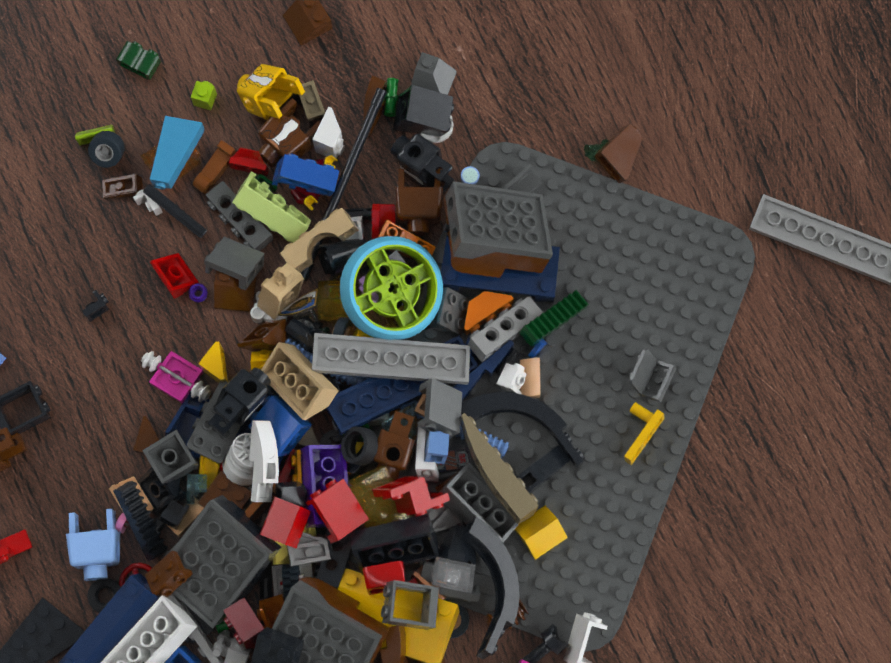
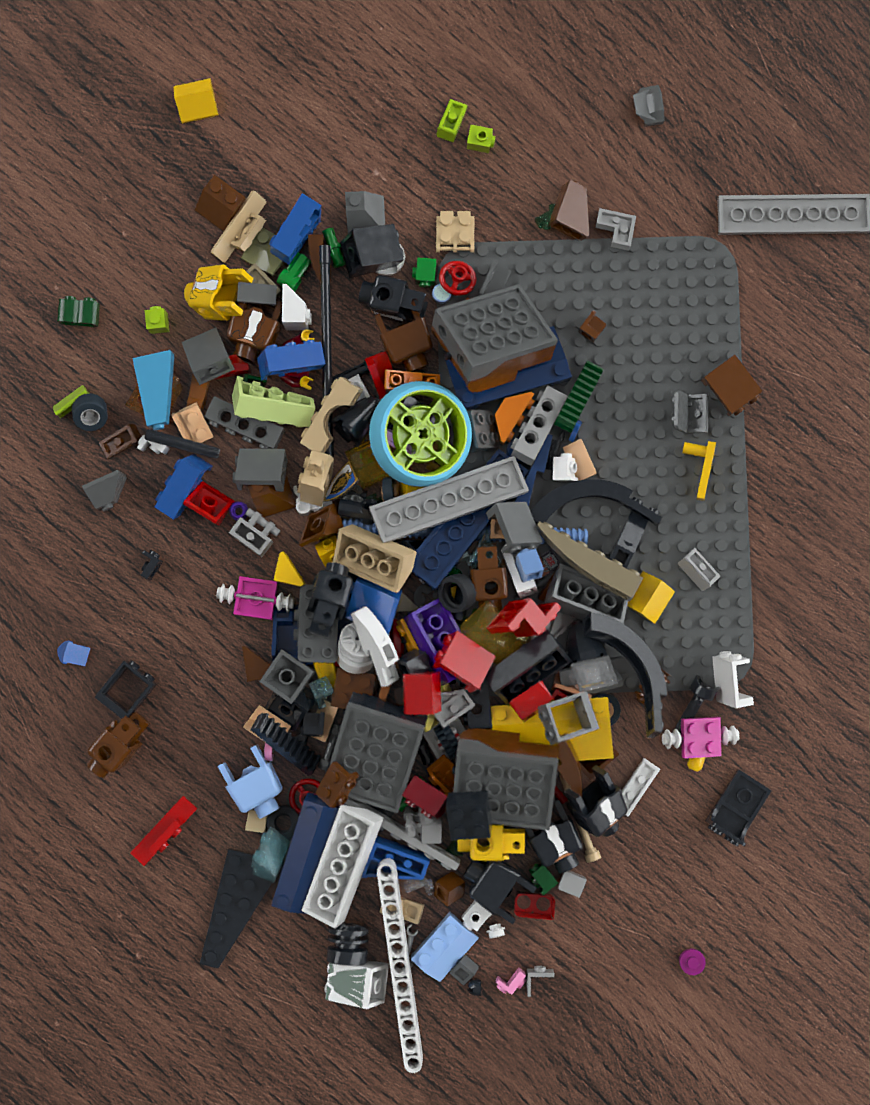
camera: 25 degrees left, 10 degrees up
(76, 617) = (271, 855): none -> clear light blue slope
(78, 583) = (254, 823): none -> tan slope
(87, 222) = (105, 490): none -> dark grey slope
(160, 243) = (181, 484): none -> blue wedge
(192, 197) = (192, 424): none -> light nougat plate
(198, 320) = (250, 536): none -> light grey brick
(233, 143) = (207, 356): none -> dark grey panel
(302, 106) = (256, 293): none -> dark grey tile
(316, 47) = (241, 228): none -> tan bracket
(330, 76) = (260, 253): none -> olive plate
(345, 104) = (294, 272): none -> green piece
(358, 70) = (295, 229): none -> blue wedge
(463, 152) = (425, 272): none -> green brick
(494, 160) = (460, 270): none -> red piece
(507, 127) = (455, 231): none -> tan plate
(547, 31) = (451, 120): none -> lime slope
(565, 56) = (480, 139): none -> lime brick
(594, 262) = (592, 327): none -> reddish brown panel
(599, 526) = (698, 569): none -> light grey slope
(660, 182) = (620, 224): none -> light grey plate
(702, 369) = (733, 385): none -> reddish brown panel
(732, 90) = (649, 105): none -> dark grey slope

